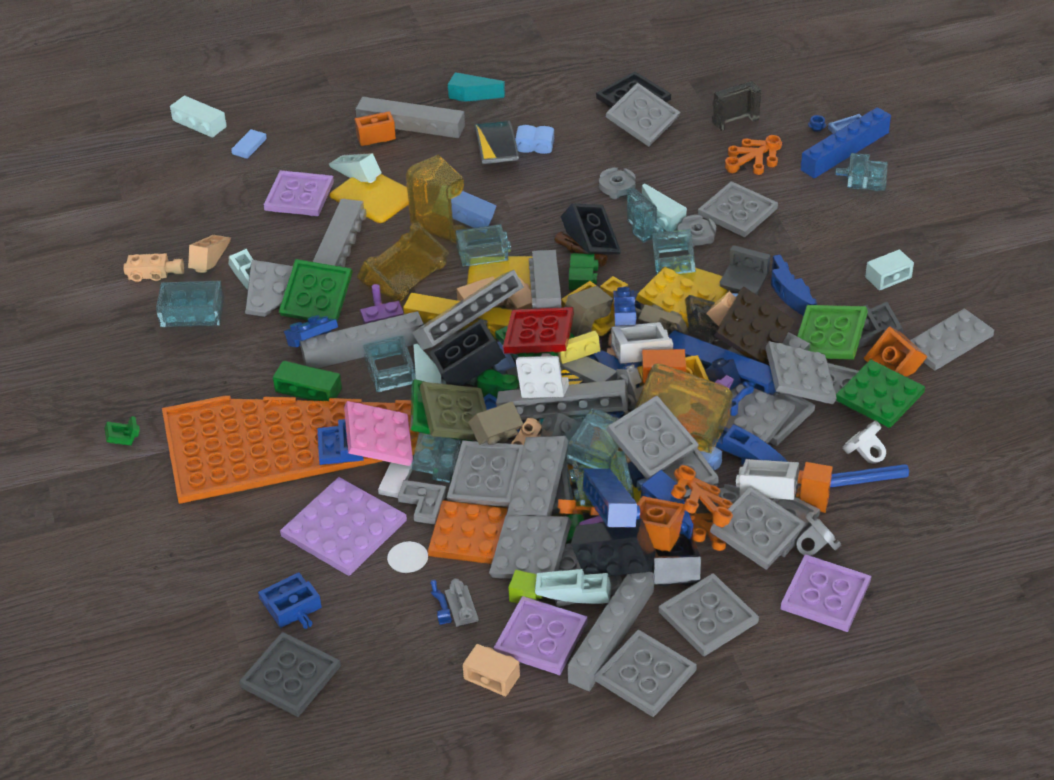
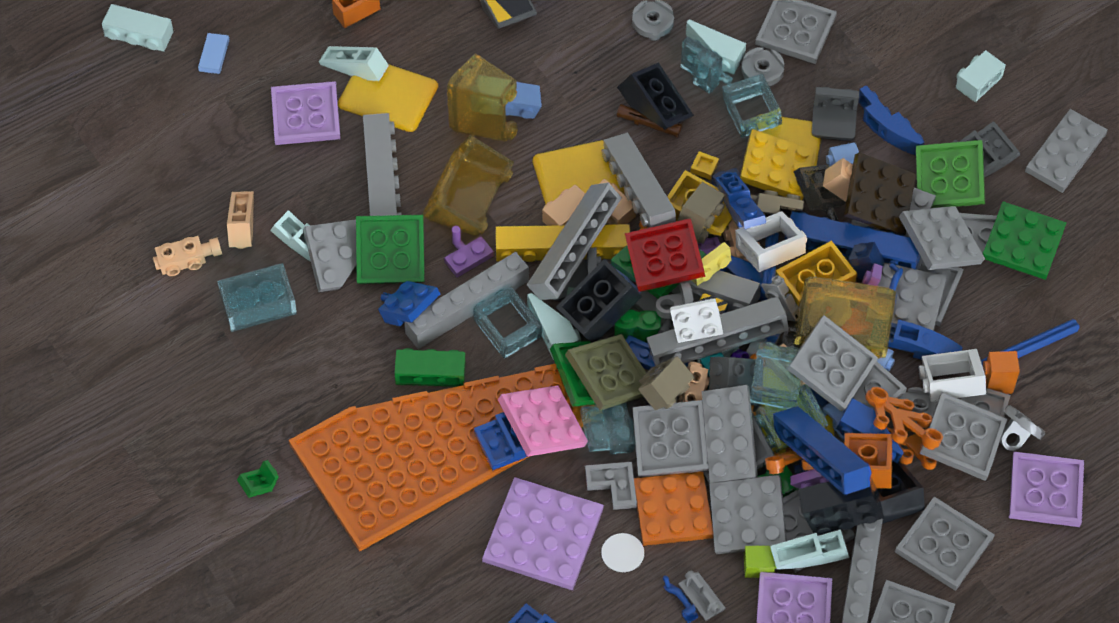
camera: 20 degrees left, 15 degrees up
(394, 478) = (573, 466): white tile -> none
(482, 245) = (546, 156): clear light blue window -> none
(582, 270) = (663, 152): green brick -> none
(670, 357) = (806, 263): orange brick -> none
(864, 441) = (1025, 301): white tile -> none
(896, 353) = (1021, 185): orange slope -> none

